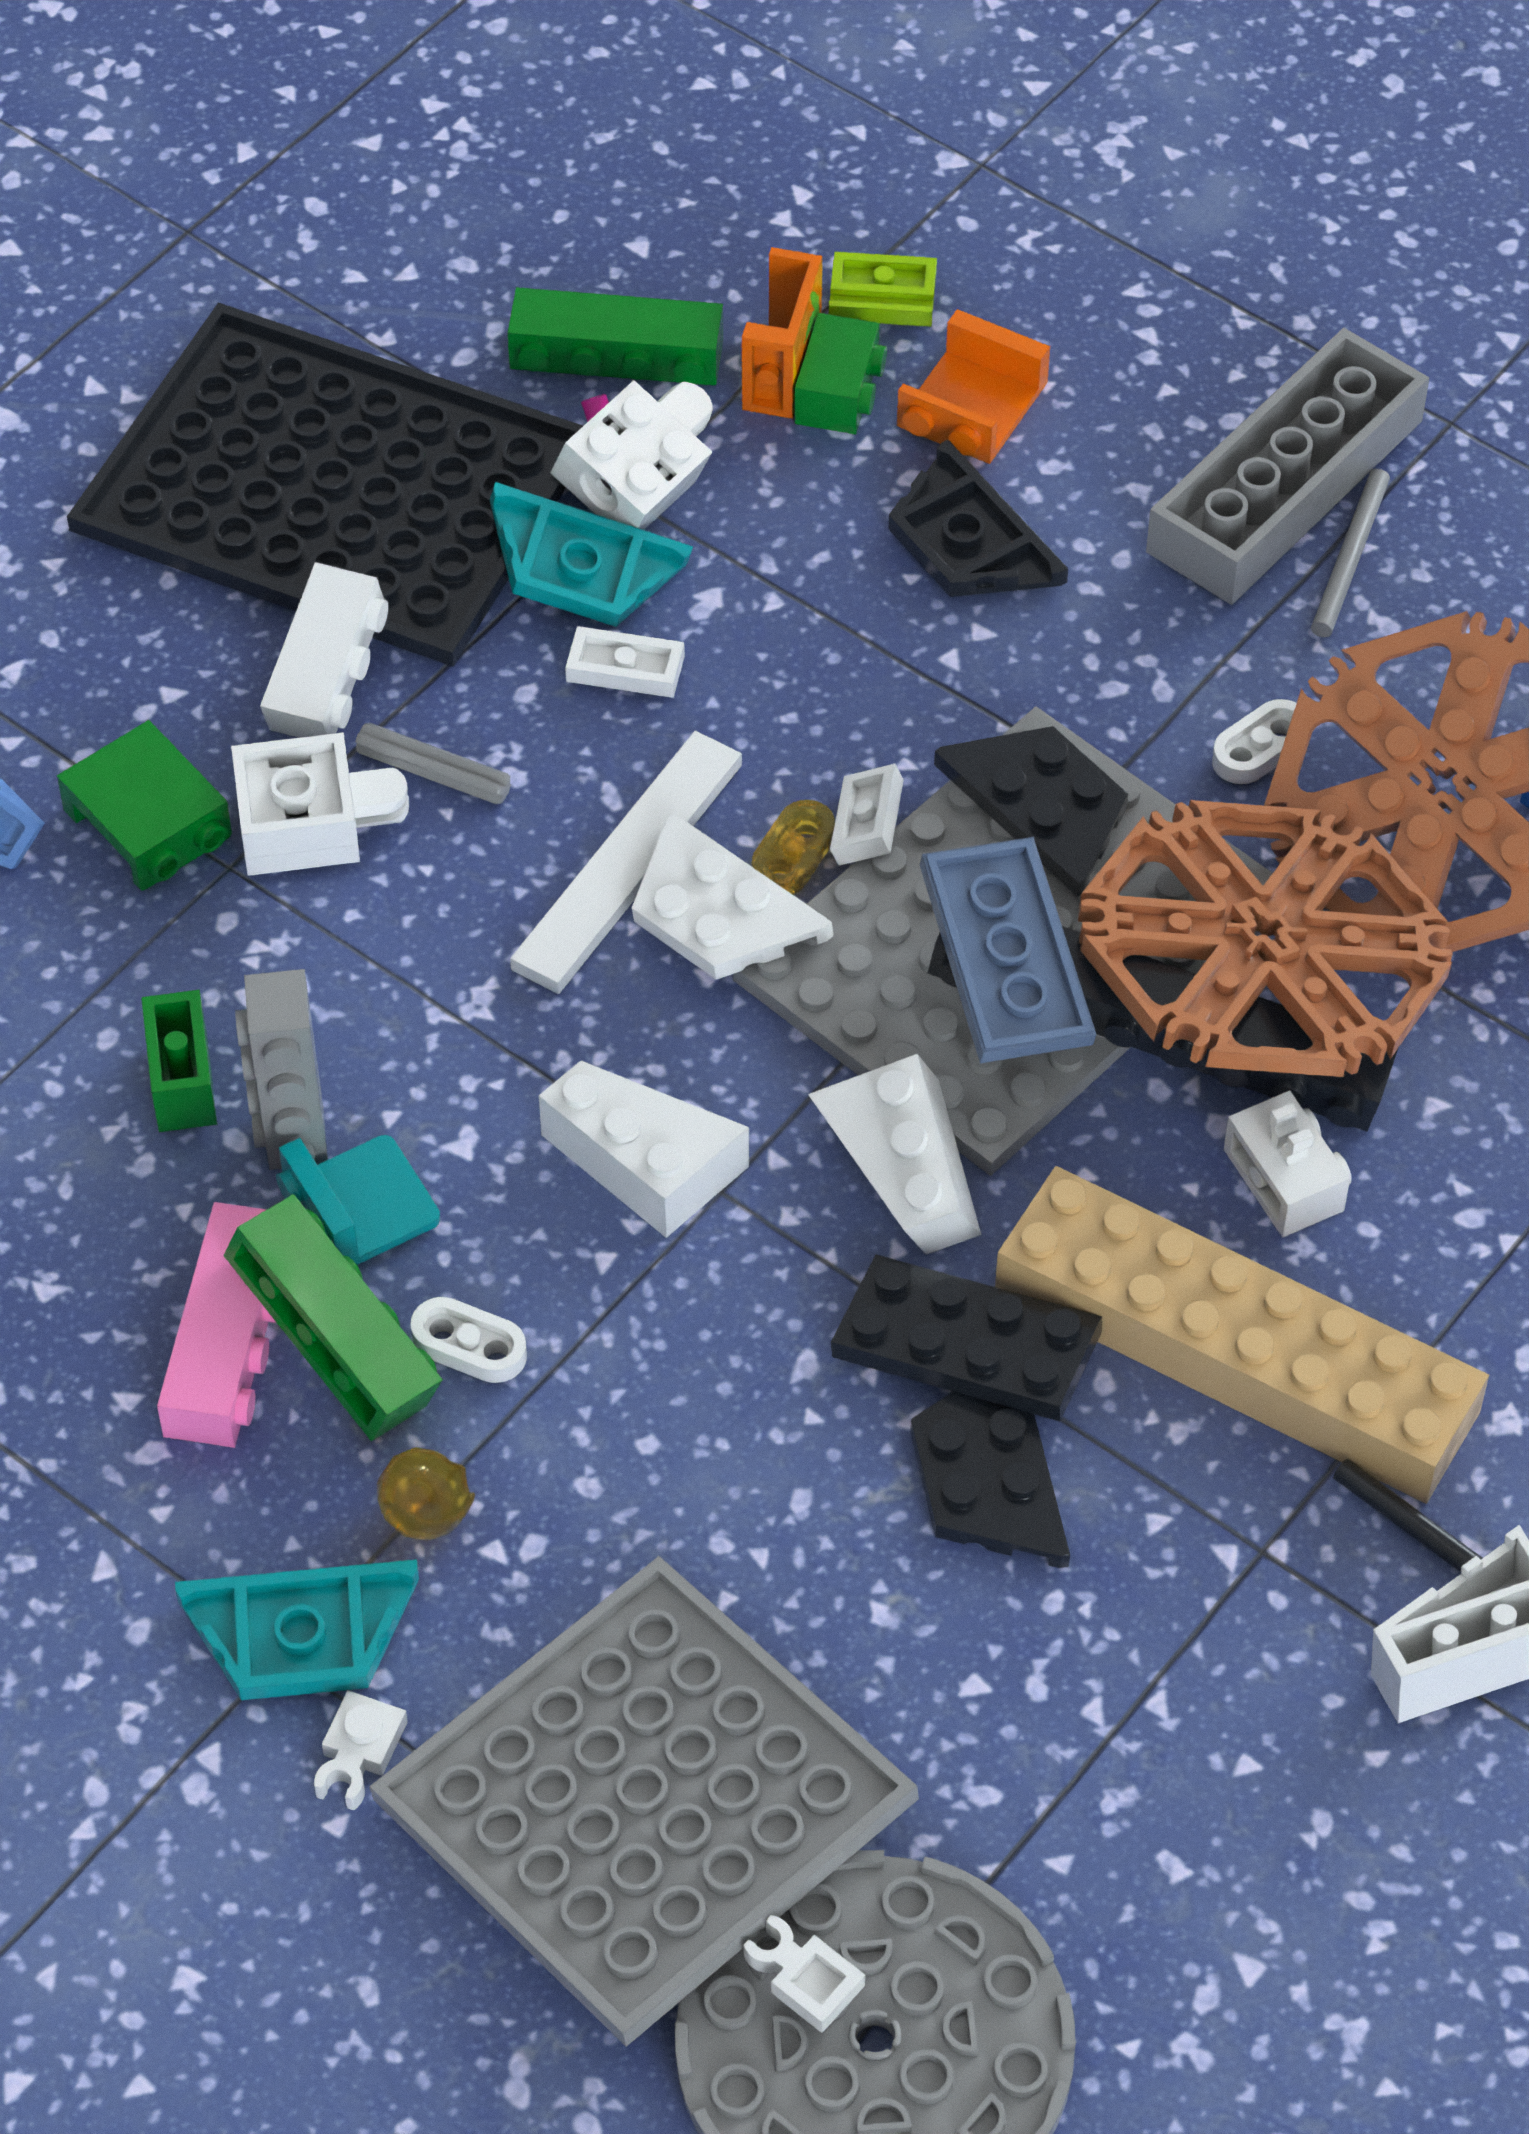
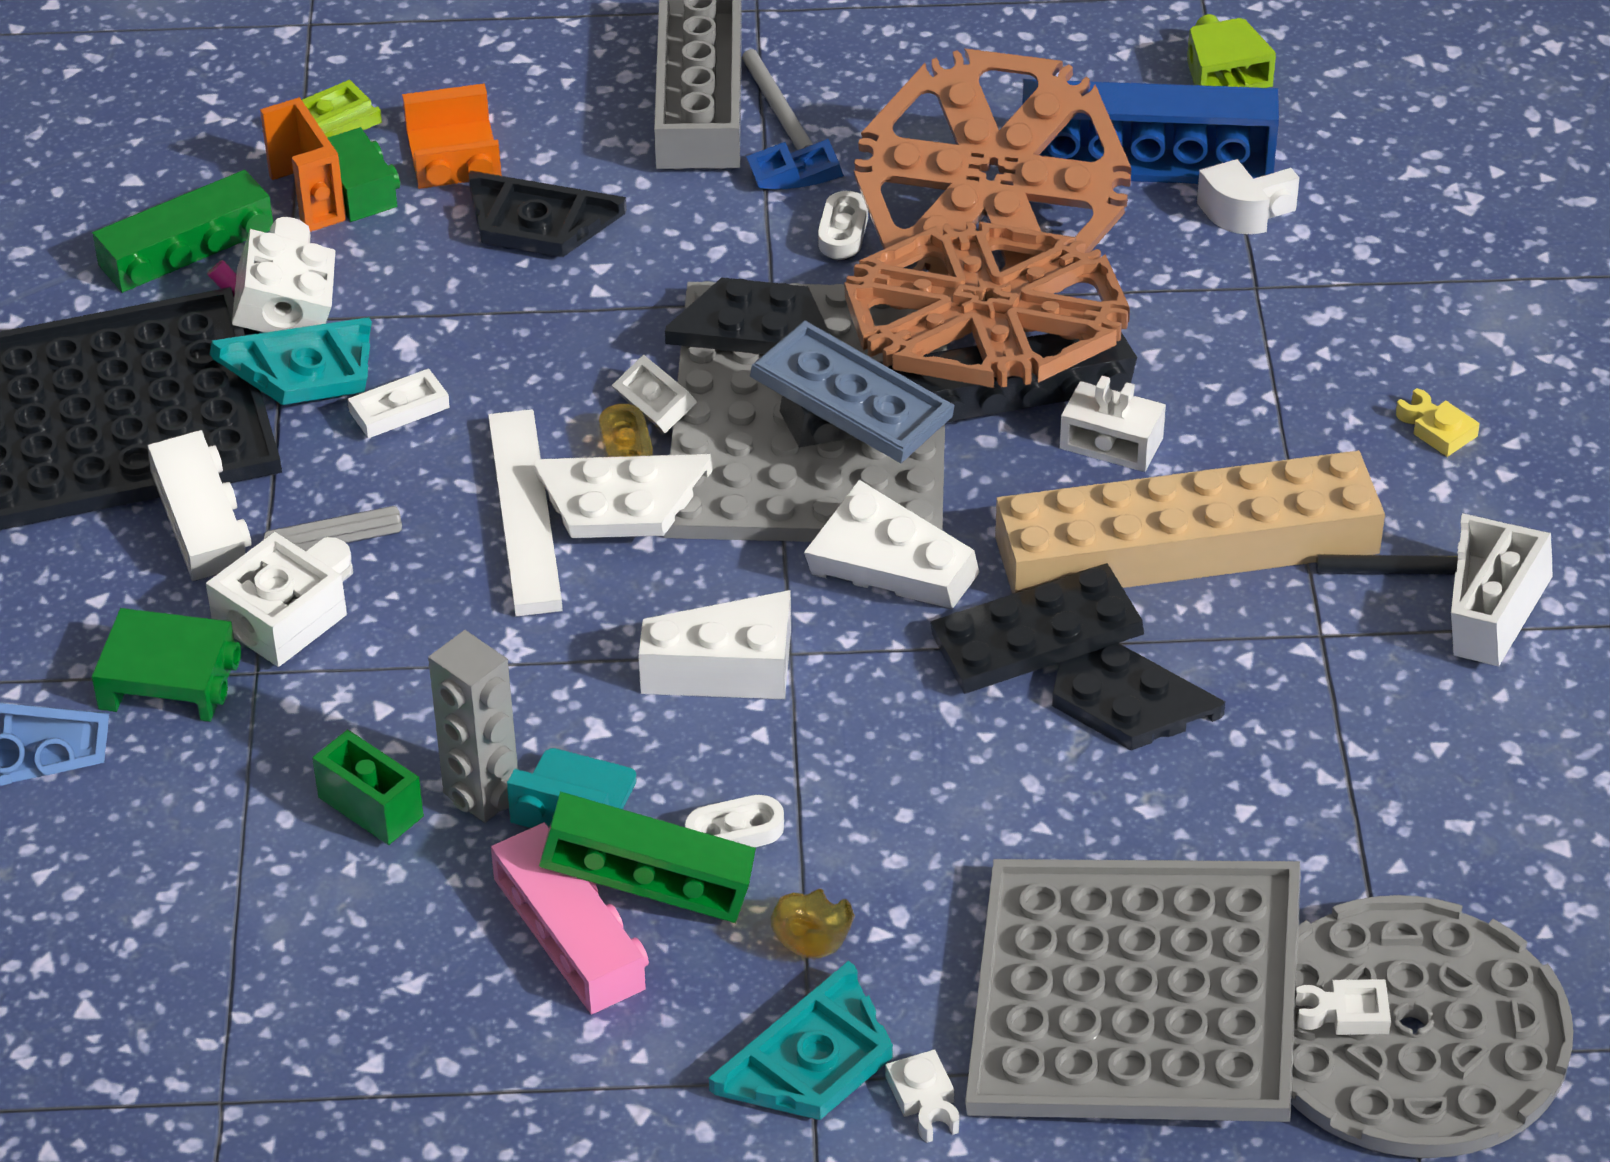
camera: 40 degrees left, 10 degrees down
(1277, 637) = (785, 170): none -> blue slope

